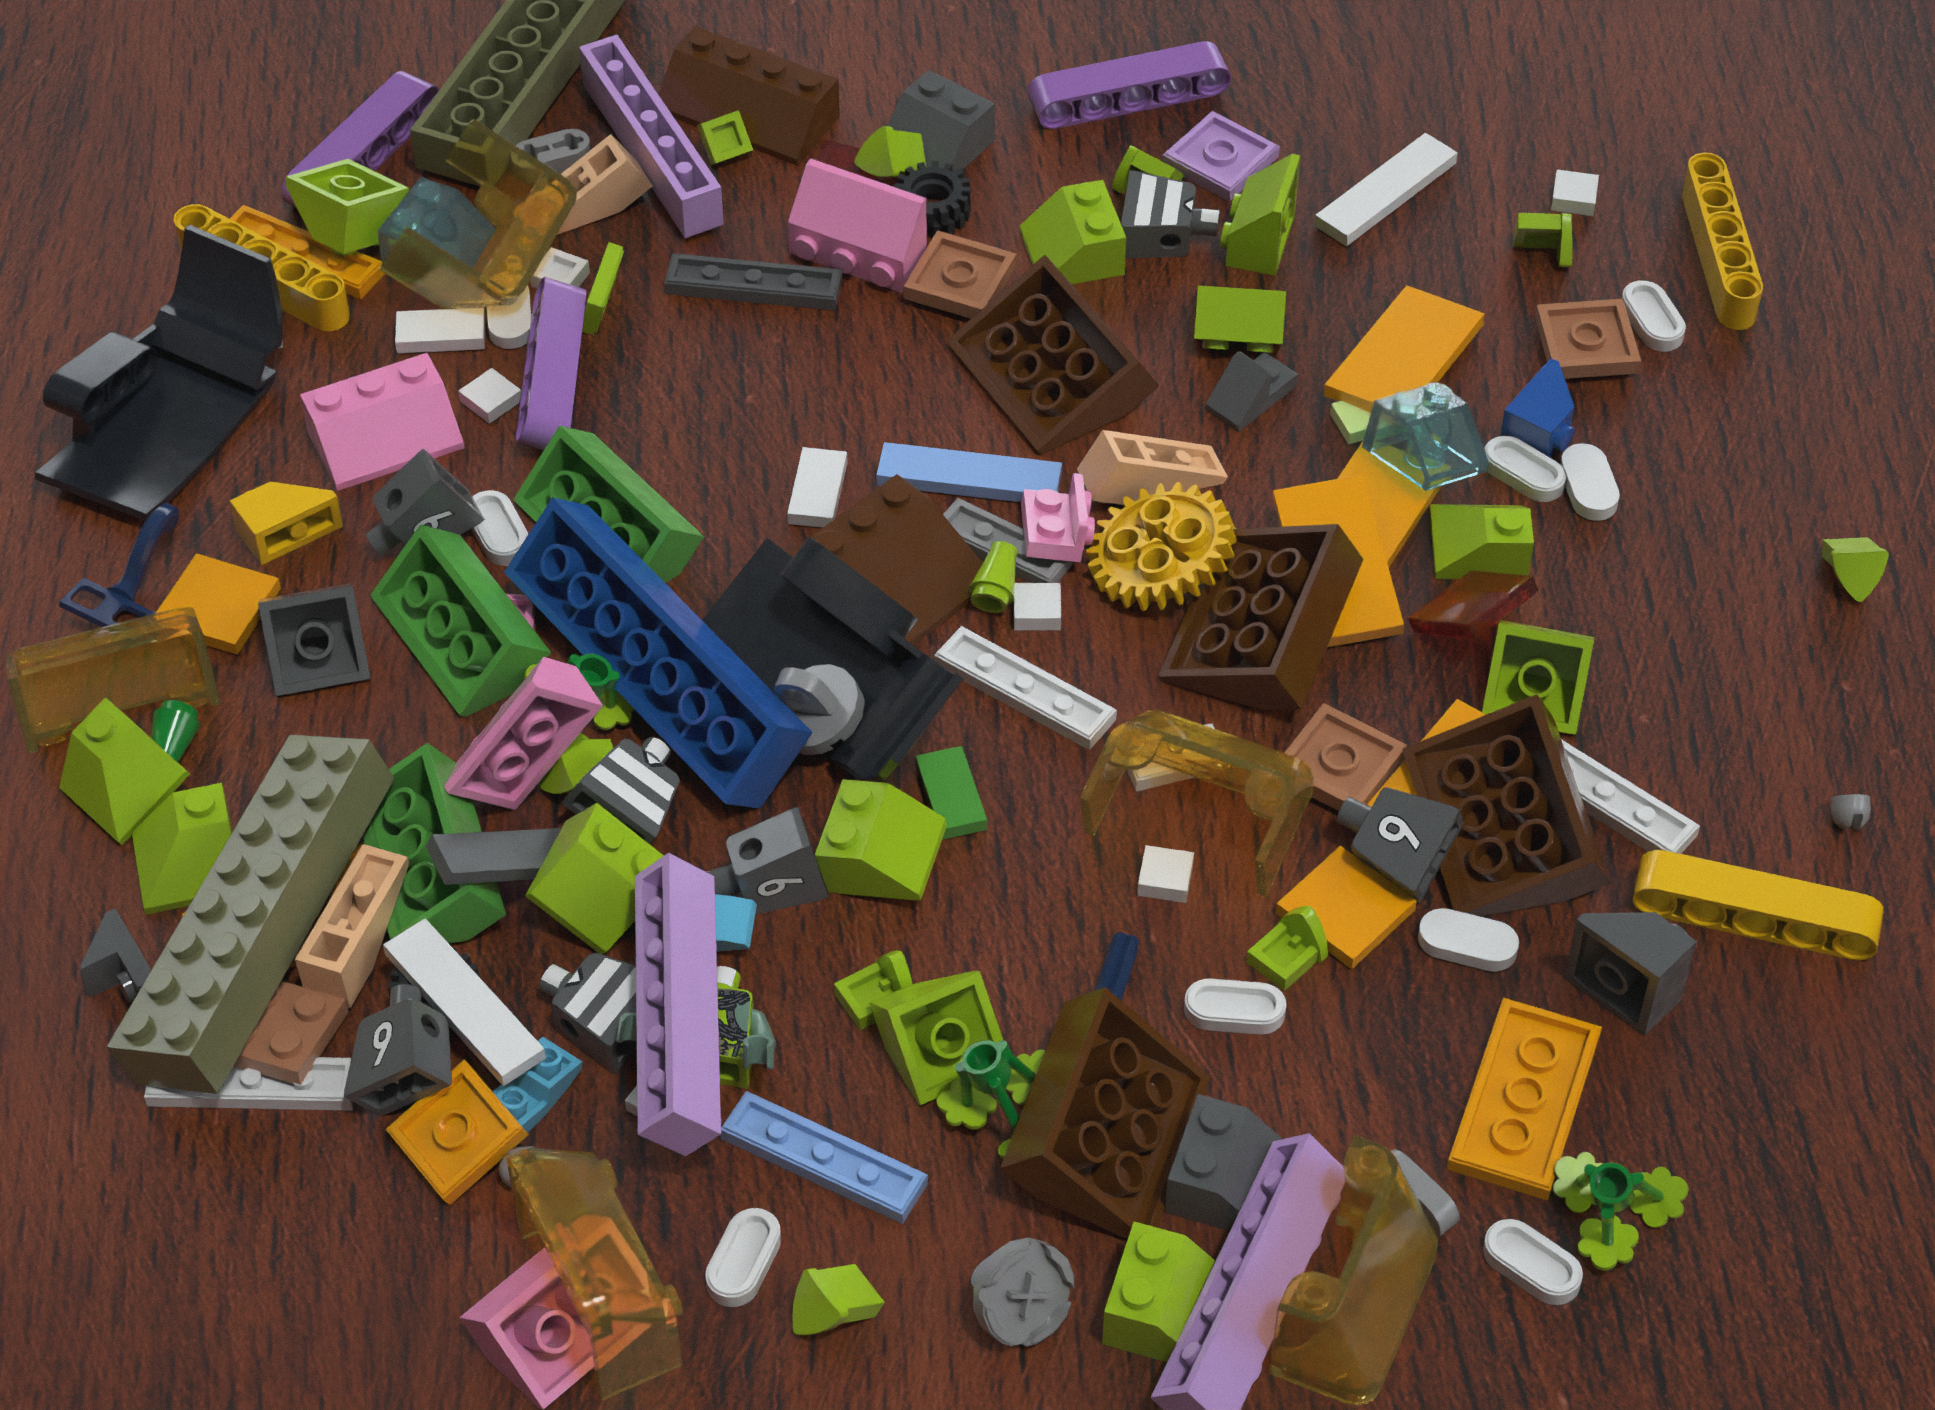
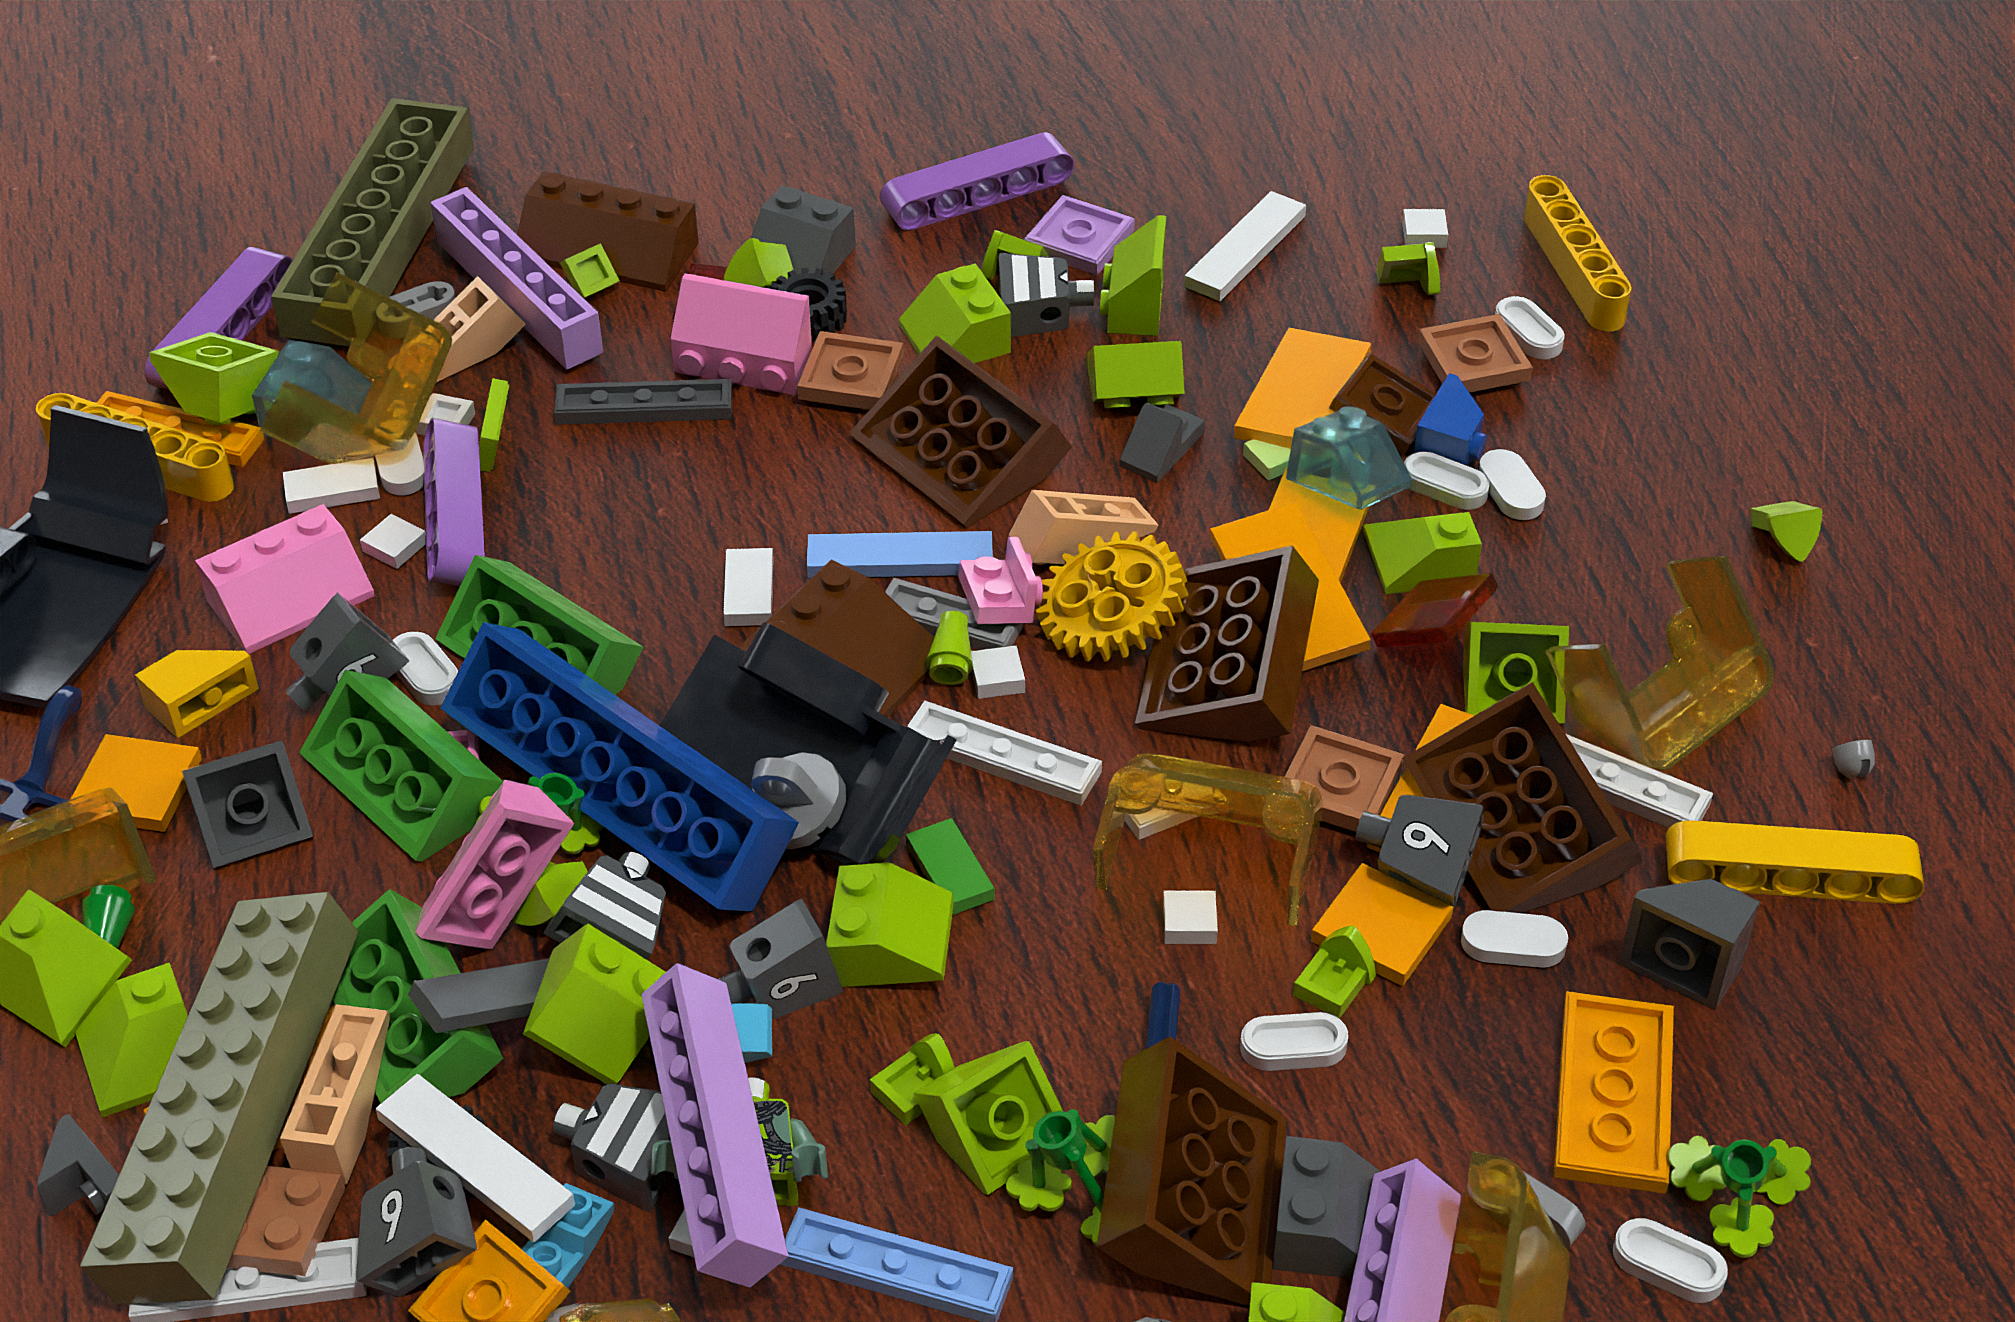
camera: 10 degrees left, 5 degrees down
(1481, 376) = (1386, 397): none -> reddish brown tile
(1732, 712) = (1710, 681): none -> clear yellow windscreen

